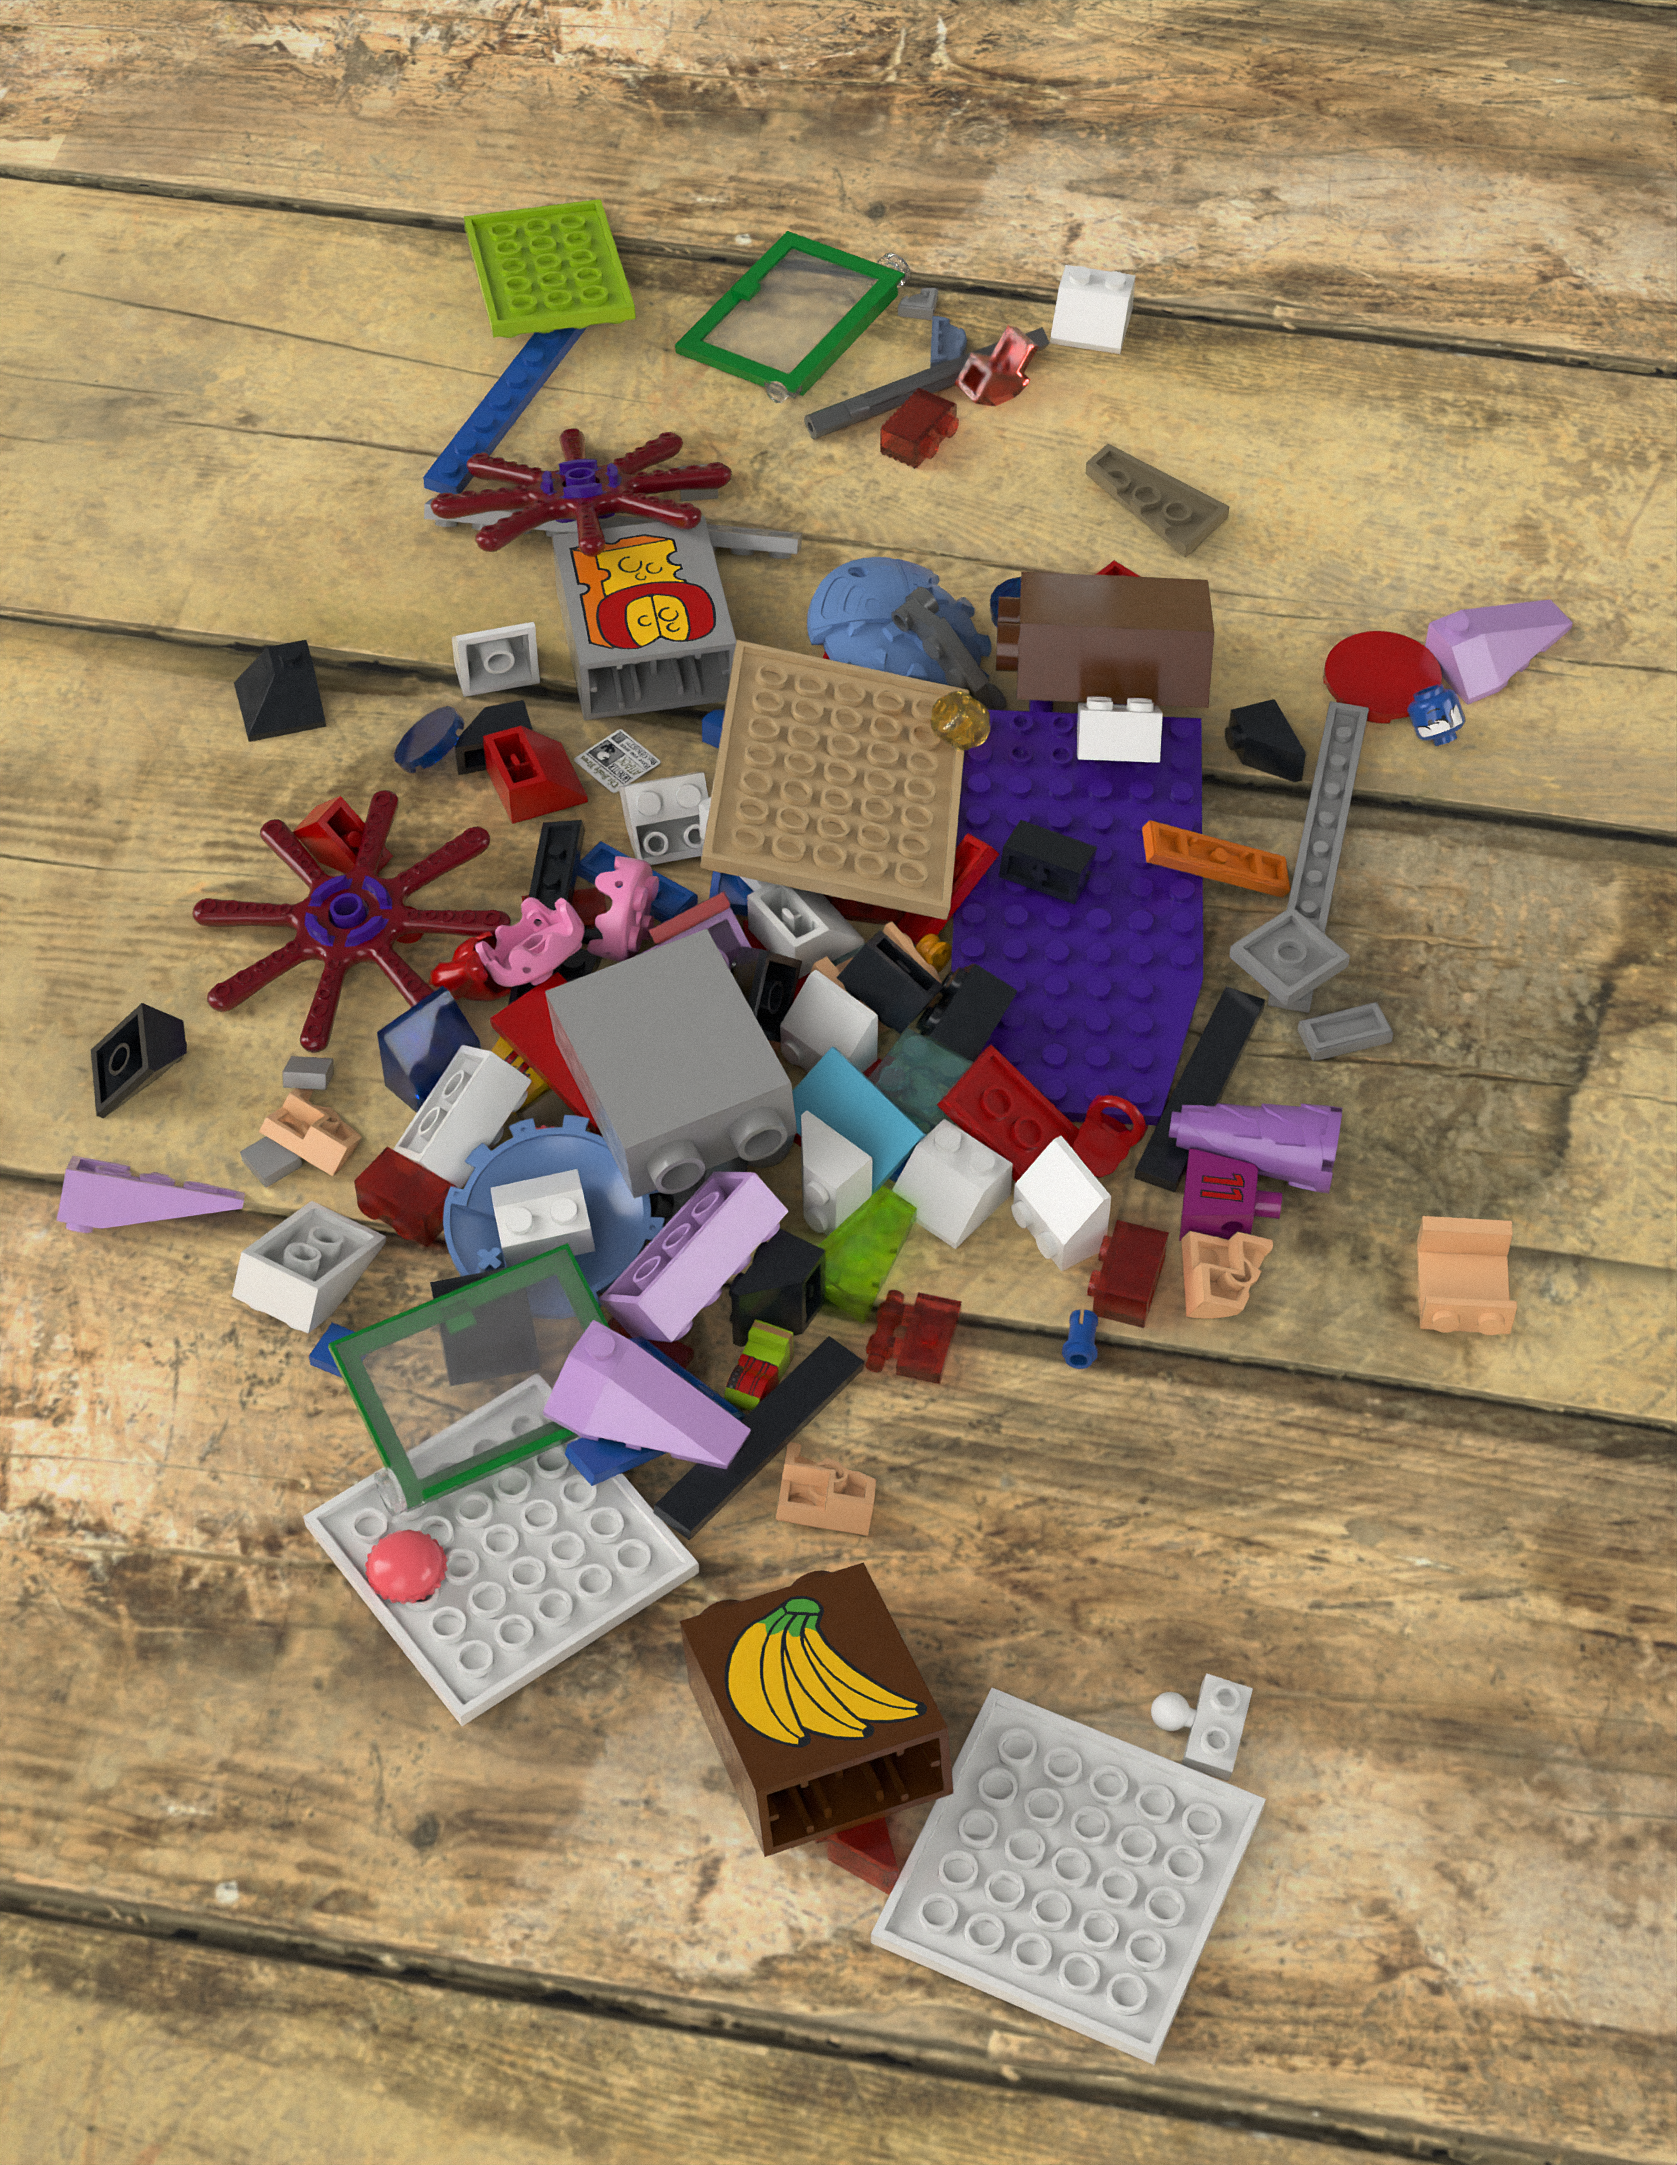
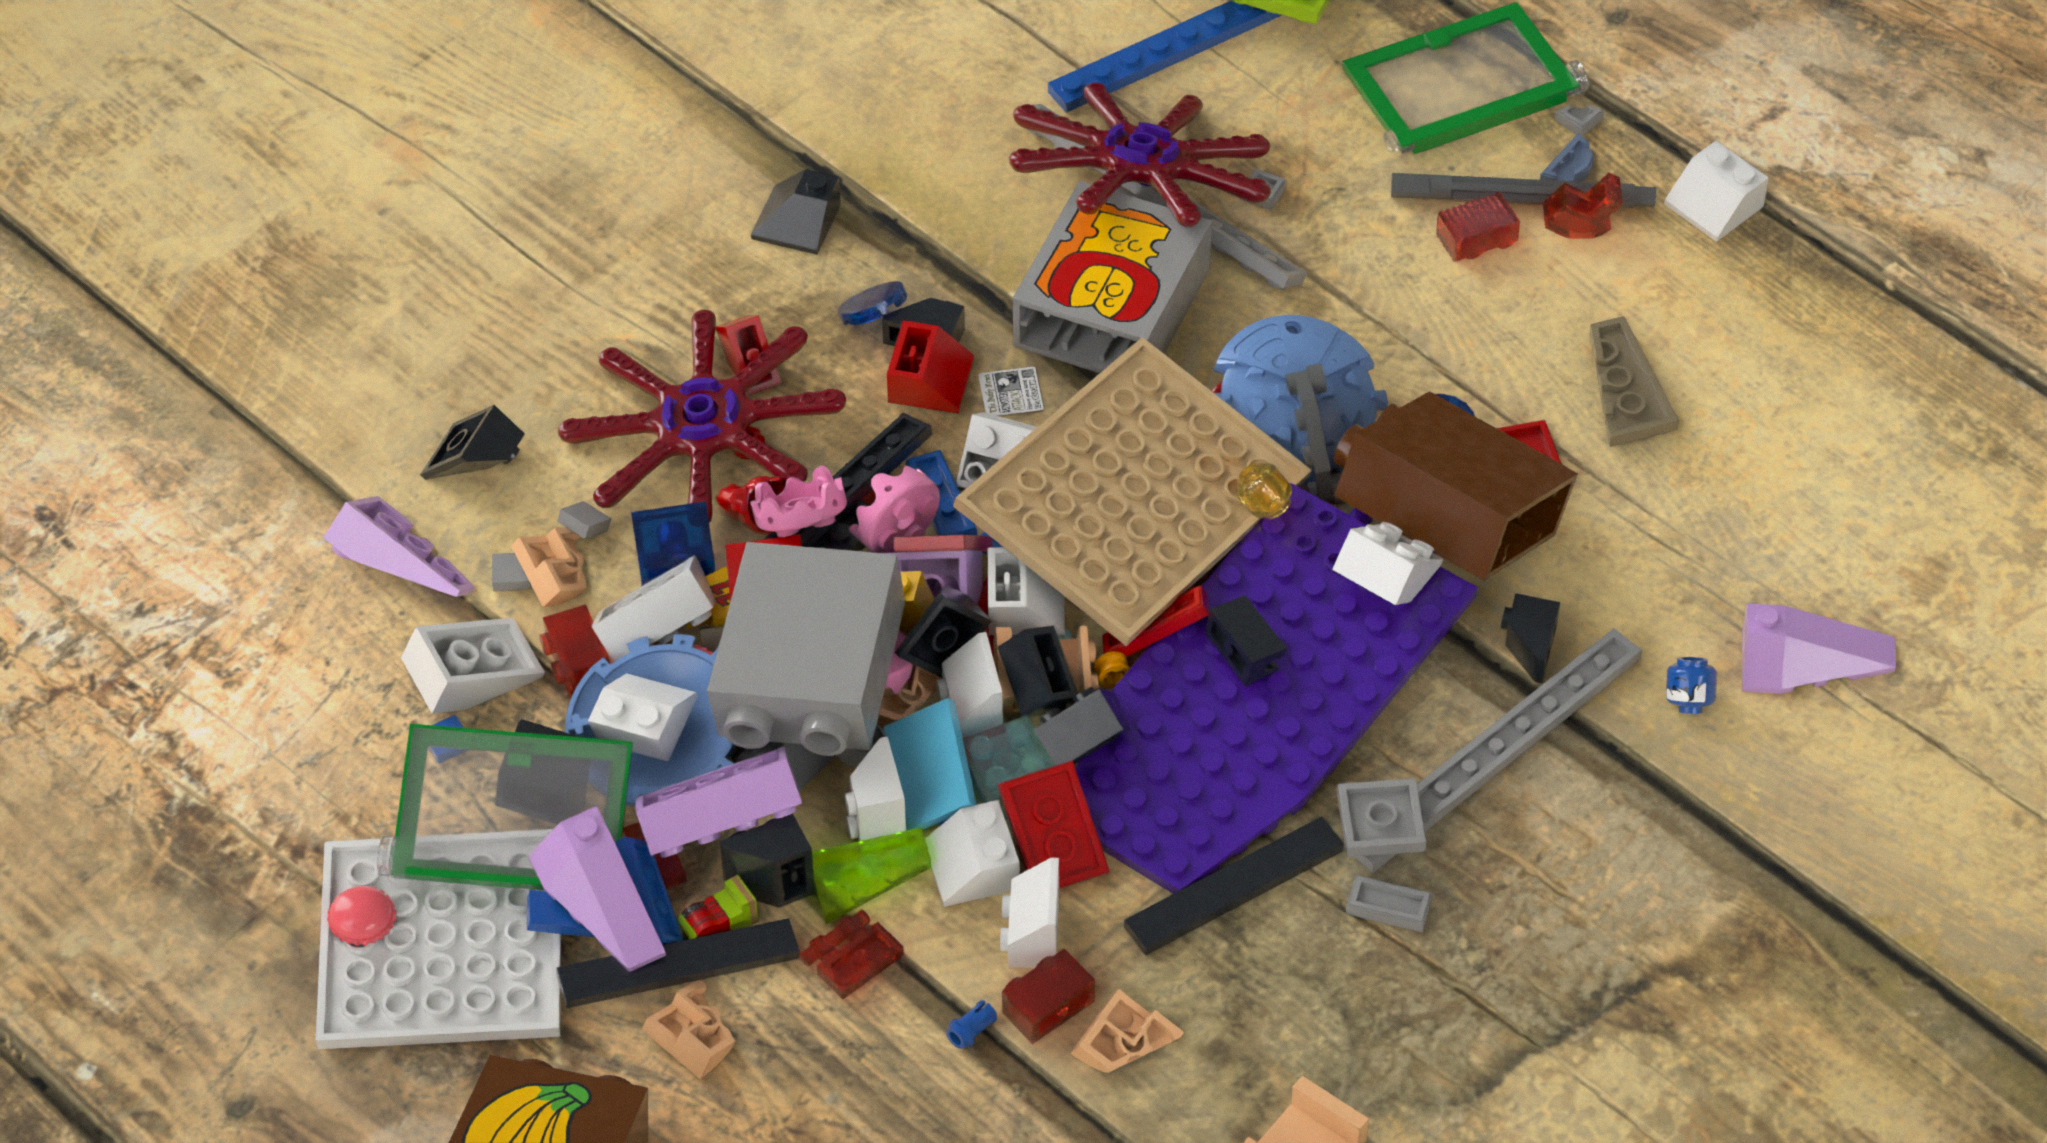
camera: 35 degrees right, 0 degrees up
(496, 659) = (976, 261): white slope -> none
(1103, 1139) = (1118, 884): red piece -> none
(1215, 859) = (1389, 708): orange plate -> none
(1223, 1196) = (1168, 977): magenta torso -> none
(1279, 1139) = (1242, 957): medium lavender cone -> none
(1380, 673) = (1685, 622): red tile -> none

